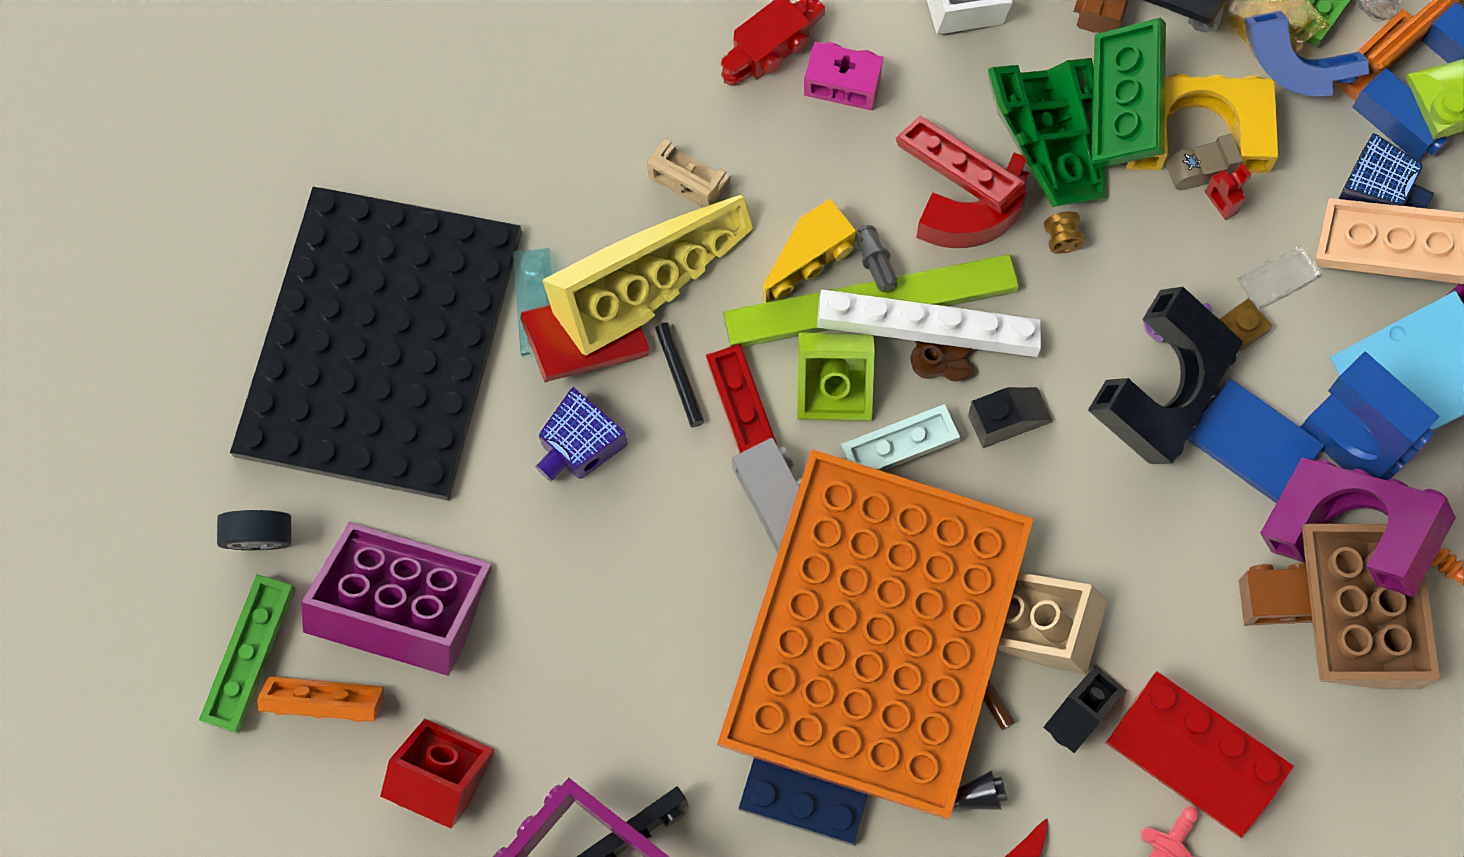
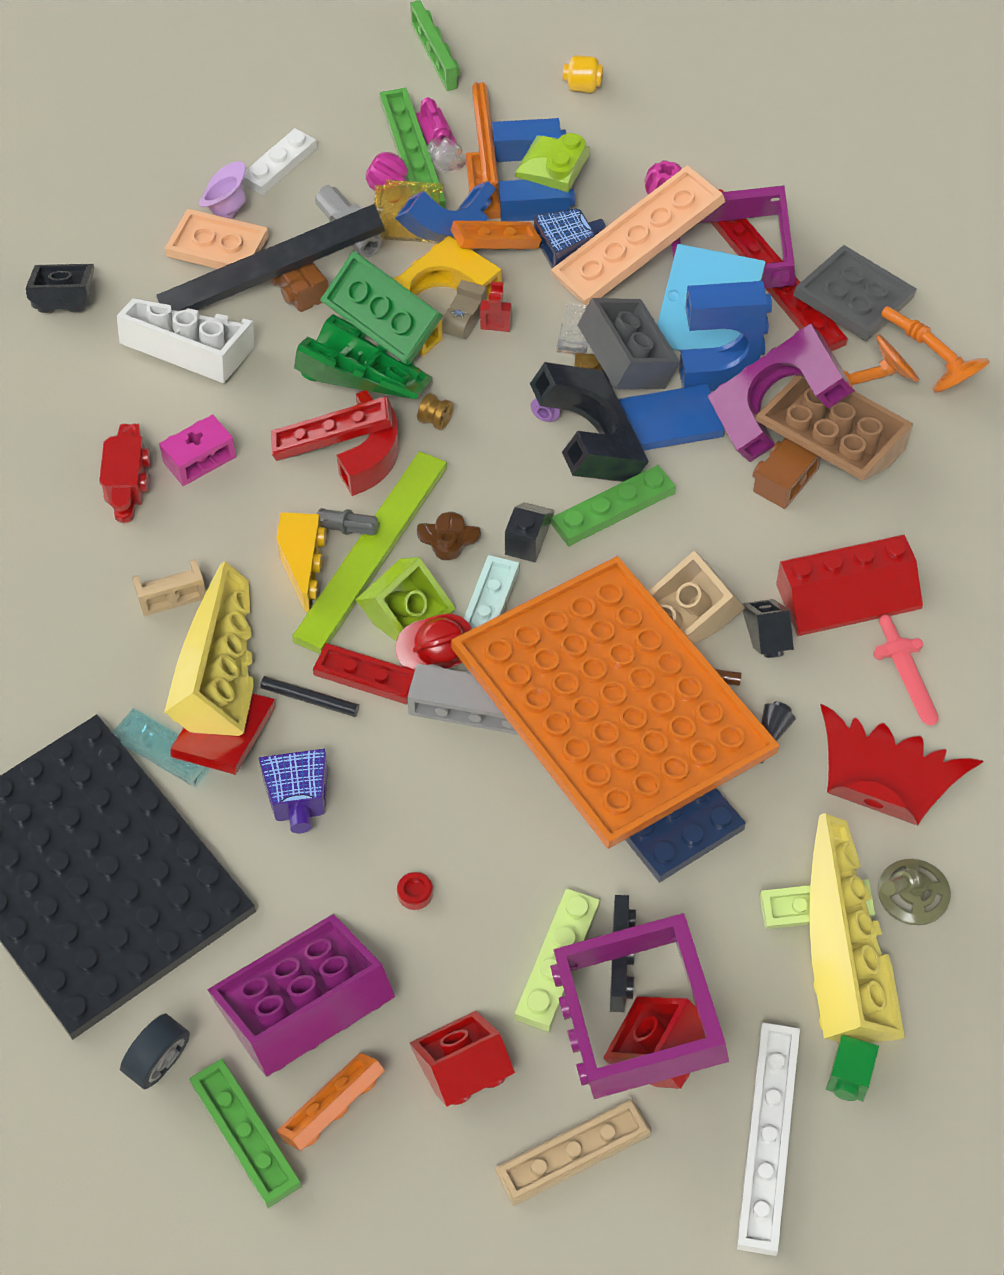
camera: 55 degrees left, 15 degrees down
(564, 611) = (414, 890): none -> red tile
(599, 776) = (570, 925): none -> yellowish green plate
(808, 425) = (430, 641): none -> red piece
(929, 323) = (421, 524): white plate -> none
(1105, 467) = (613, 505): none -> bright green plate
(1294, 338) = (628, 343): none -> dark grey brick
(1318, 118) = (495, 235): none -> orange plate

